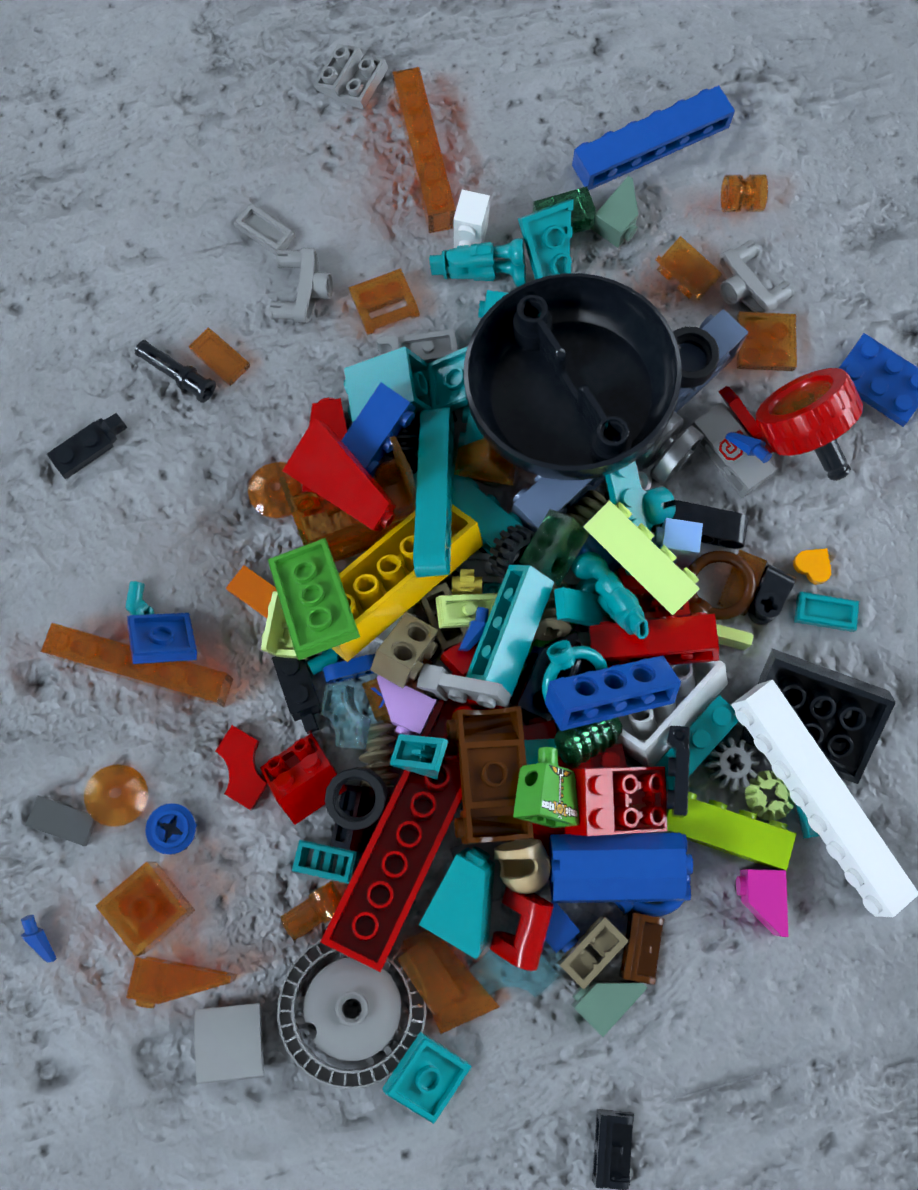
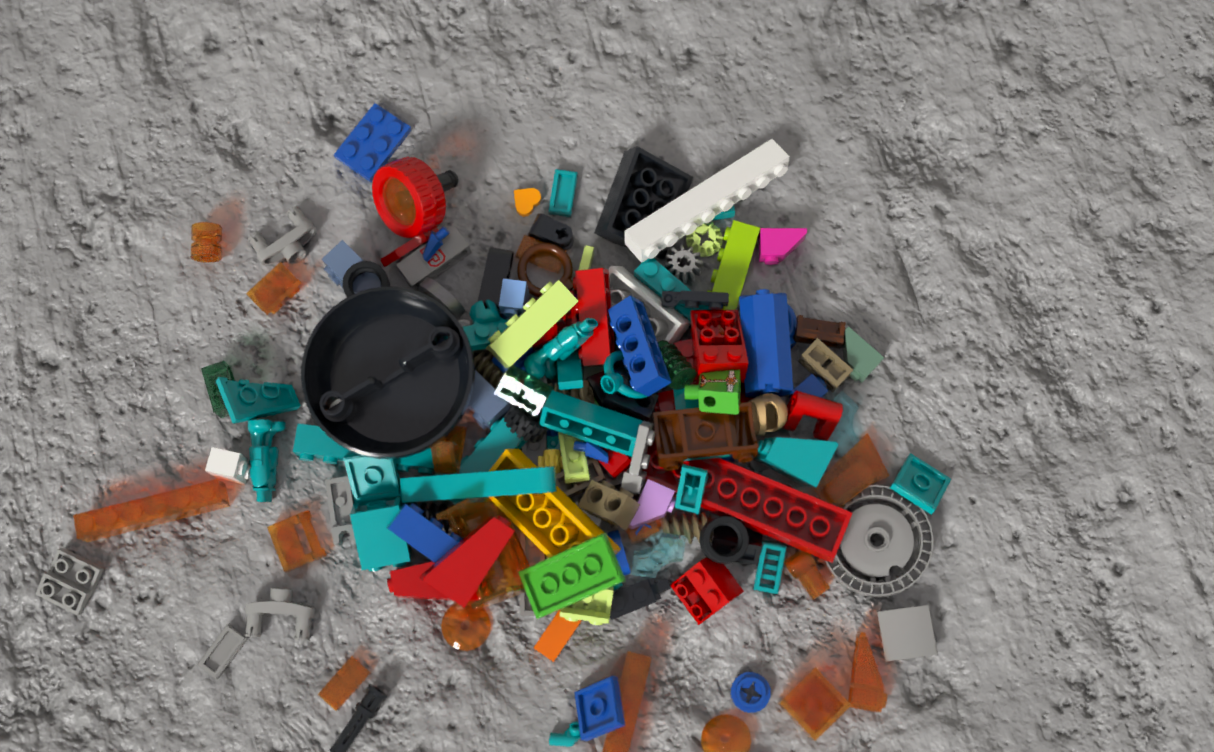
camera: 90 degrees left, 0 degrees up
(244, 780) = (711, 635): red tile -> none
(612, 1149) = (957, 353): black hinge -> none
(618, 215) = (222, 343): sand green slope -> none
(652, 137) = (149, 316): blue brick -> none
(769, 343) = (339, 224): clear orange plate -> none

